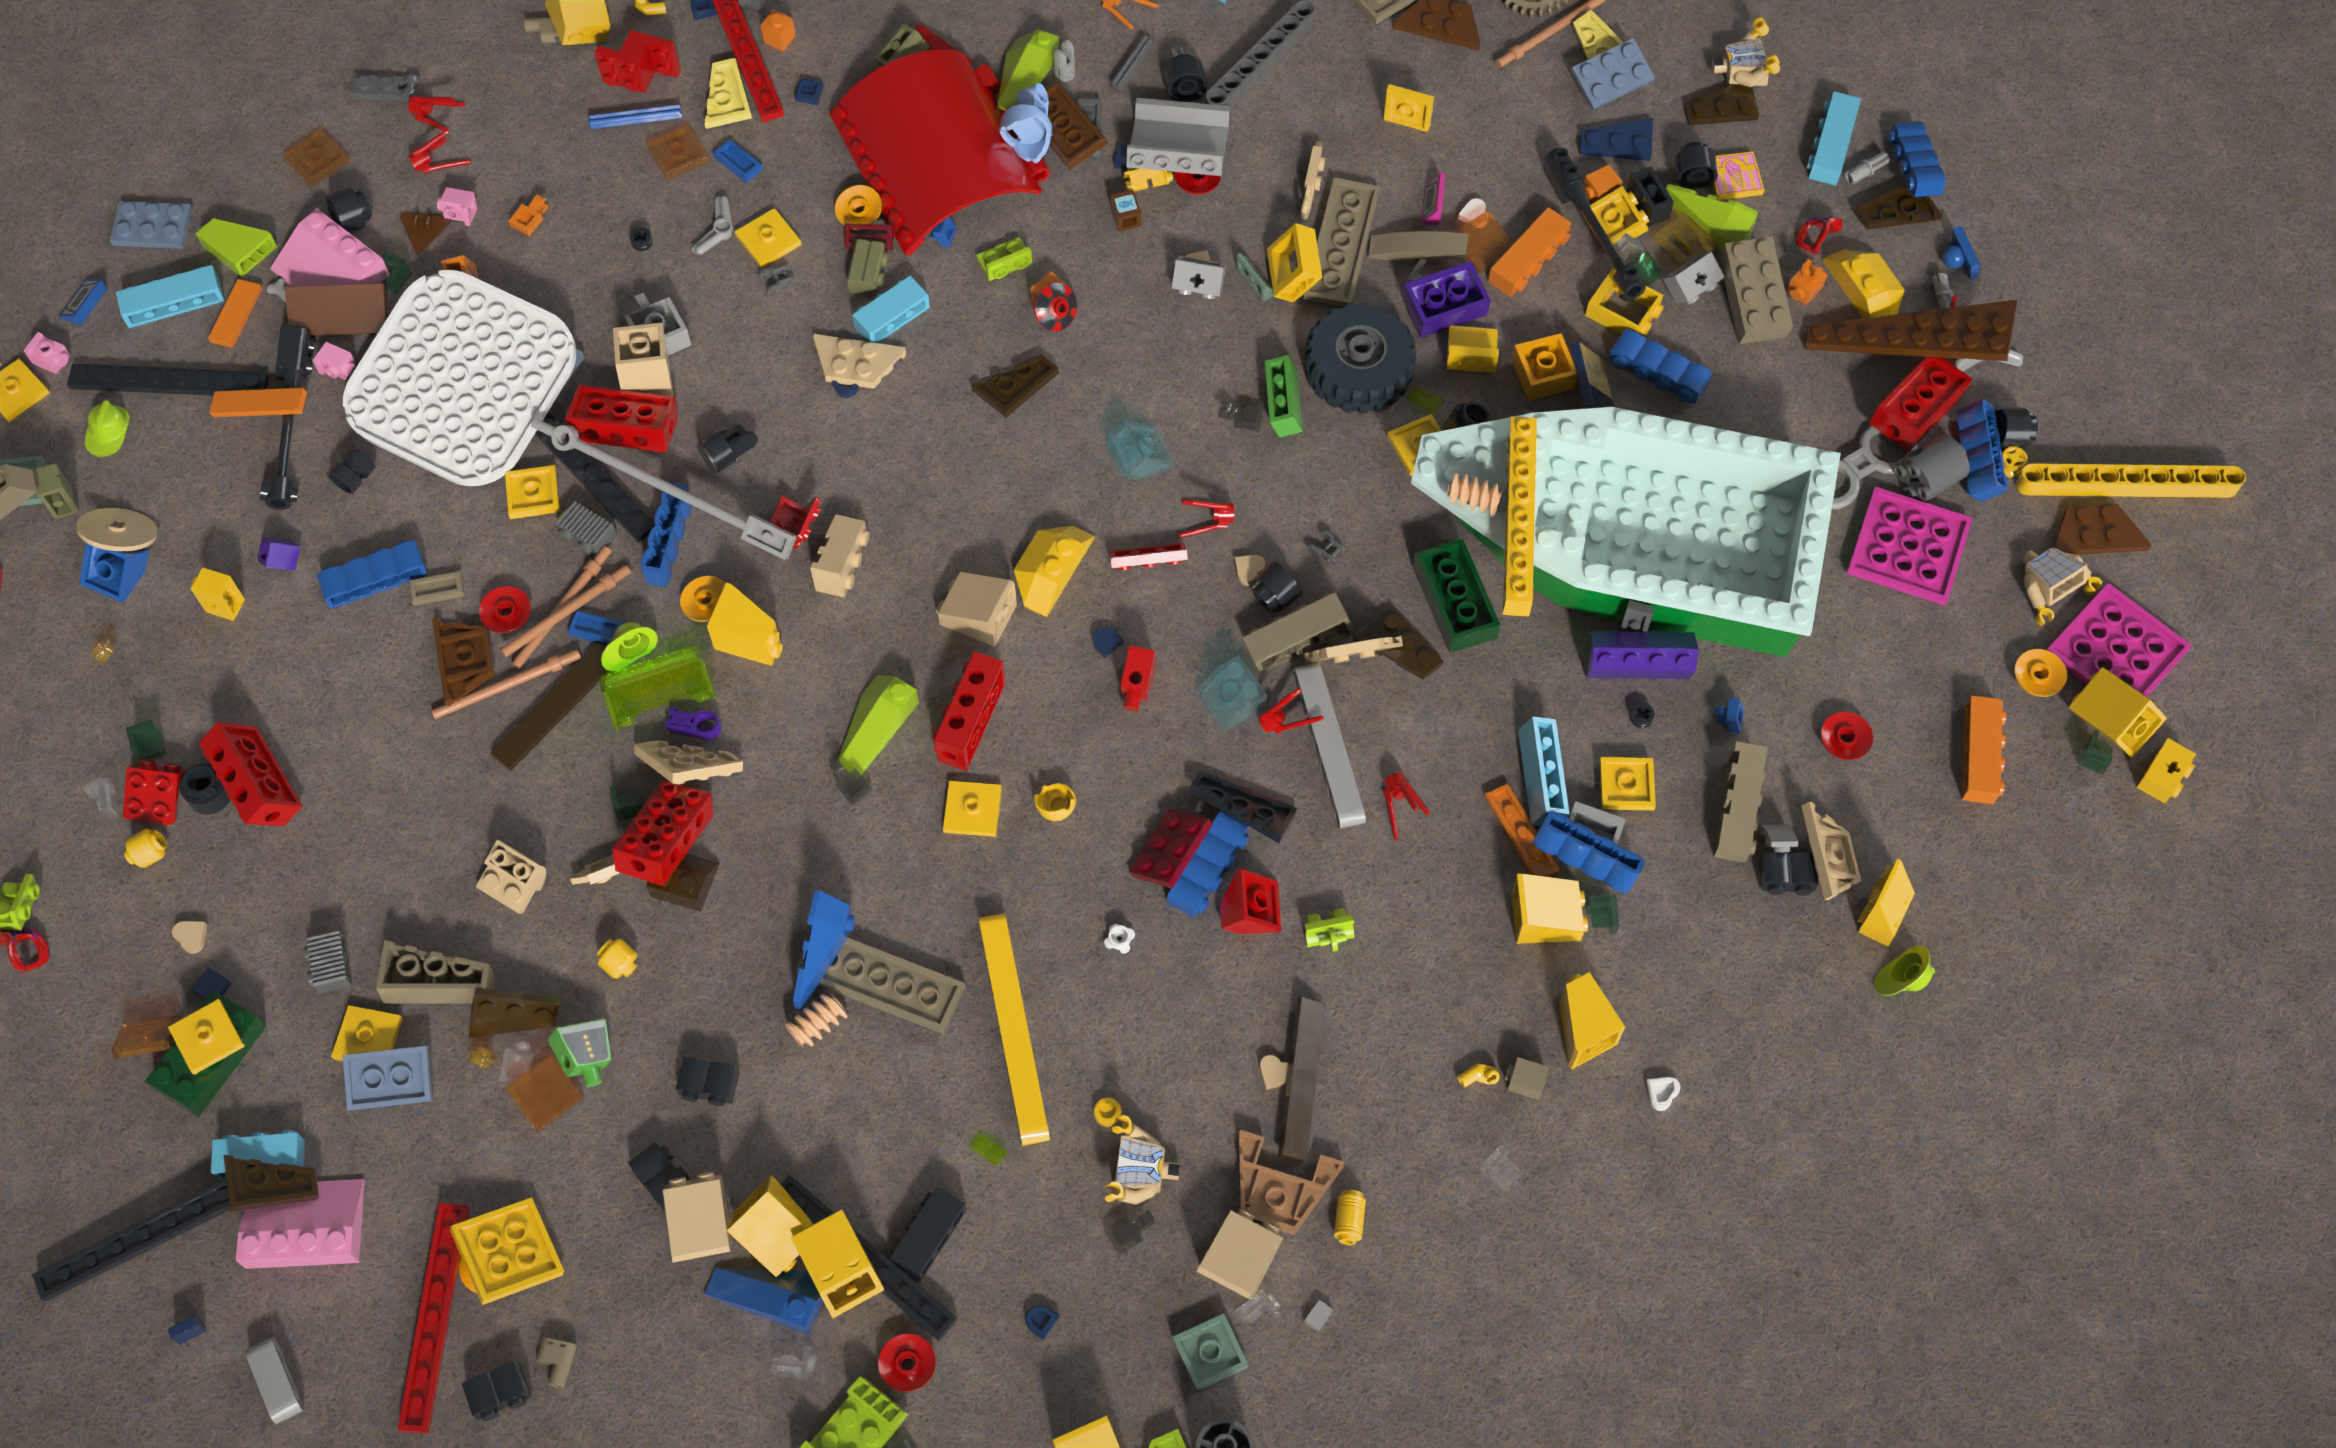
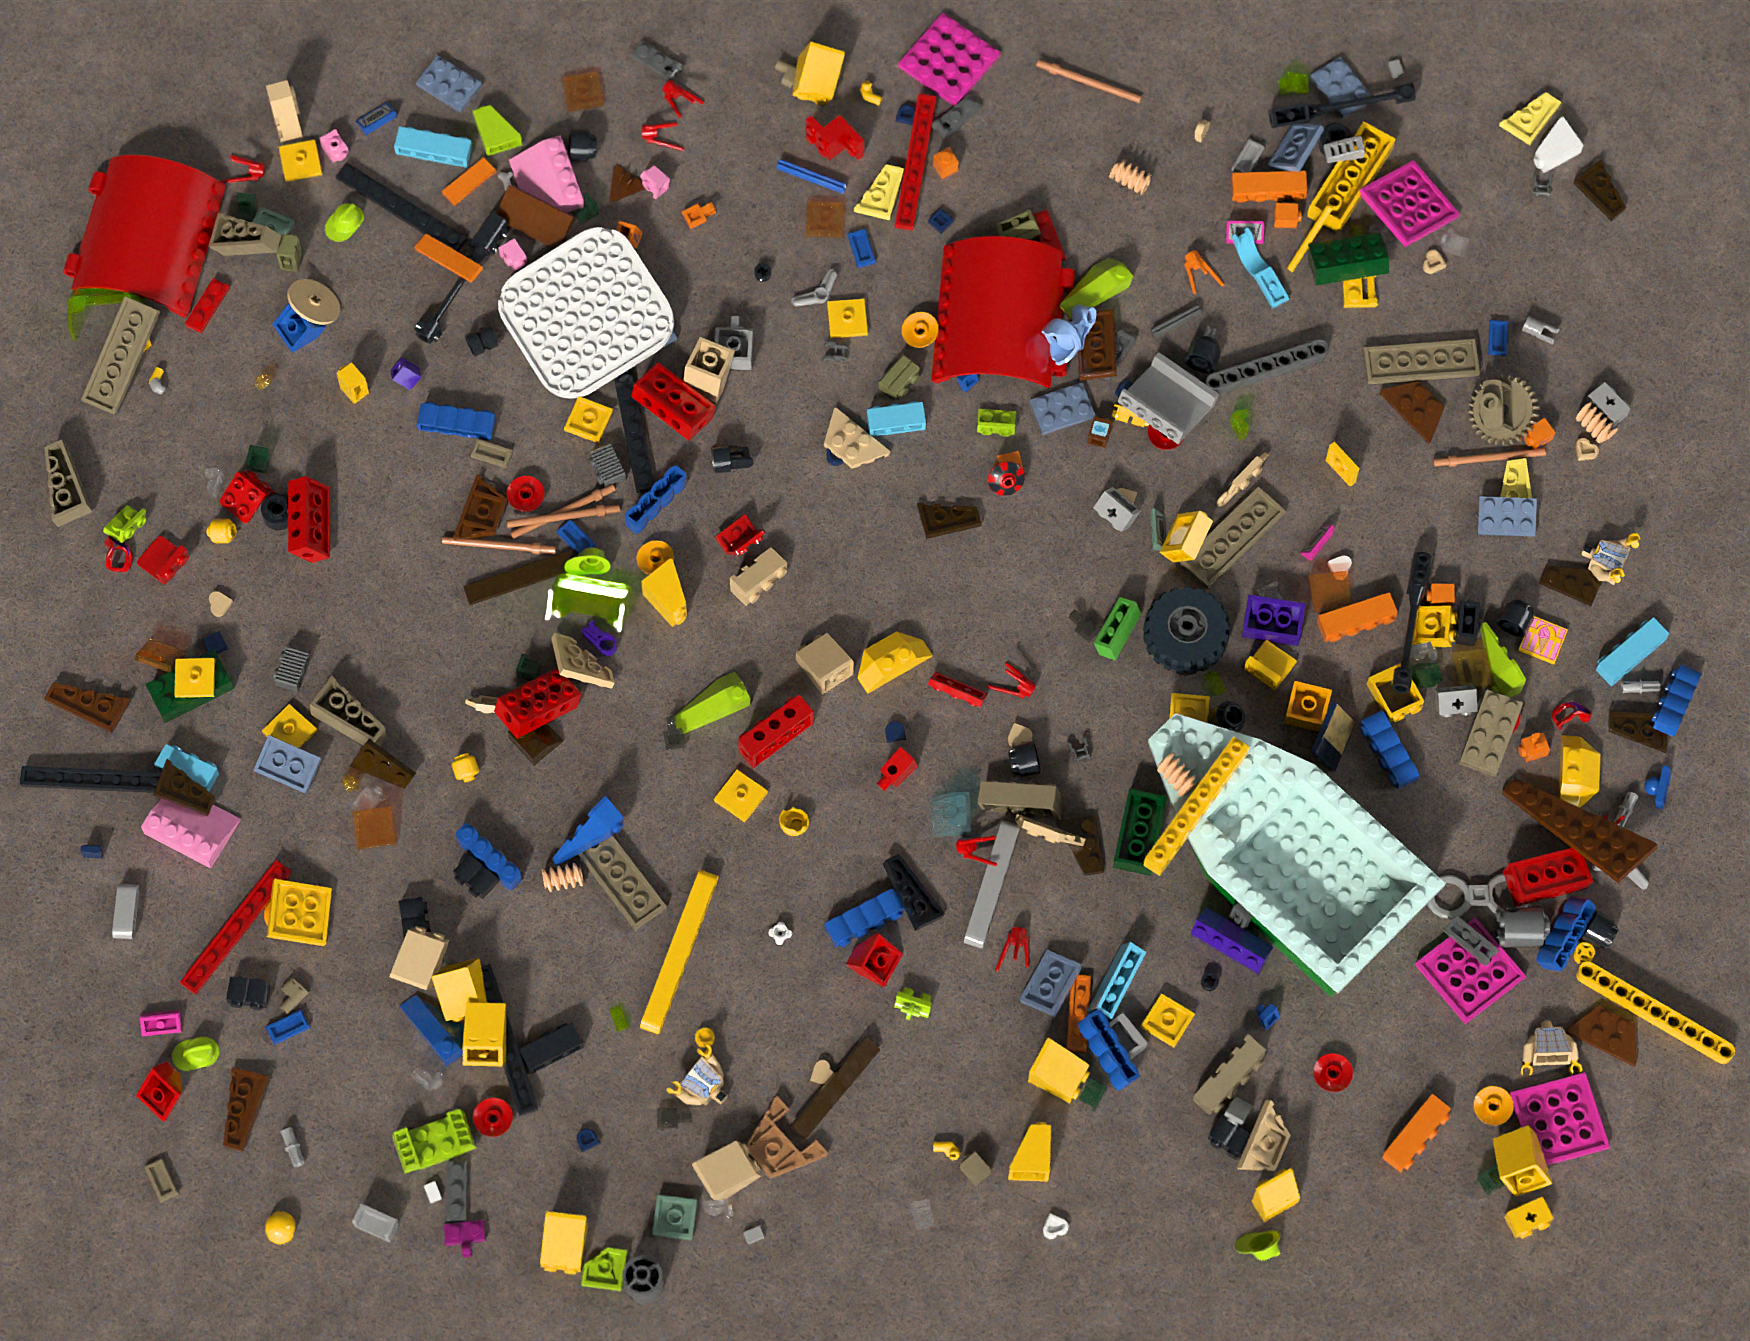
camera: 30 degrees right, 5 degrees up
(87, 922) = (163, 559): none -> red bracket
(95, 1148) = (93, 707): none -> reddish brown wing
(511, 877) = (430, 677): tan brick -> none
(573, 1404) = (287, 1027): none -> blue tile
(582, 1050) = (411, 814): torso -> none
(696, 1042) = (484, 853): none -> blue brick
(756, 530) = (711, 531): light grey bar -> none
(889, 237) = (930, 358): dark red tile -> none
(1064, 62) = (1125, 294): light grey hinge -> none
(1067, 209) = (1062, 408): none -> sand blue plate
(1139, 450) = (998, 612): clear light blue slope -> none
(1170, 848) = (847, 893): dark red plate -> none
(1270, 129) = (1238, 425): none -> clear neon green bracket
(1350, 1217) = (809, 1187): yellow head -> none
(1417, 245) = (1283, 570): dark tan slope -> none
(1470, 816) = (1050, 983): none -> sand blue plate
(1620, 140) = (1479, 568): dark blue wing -> none
(1891, 511) = (1470, 940): none -> dark grey plate

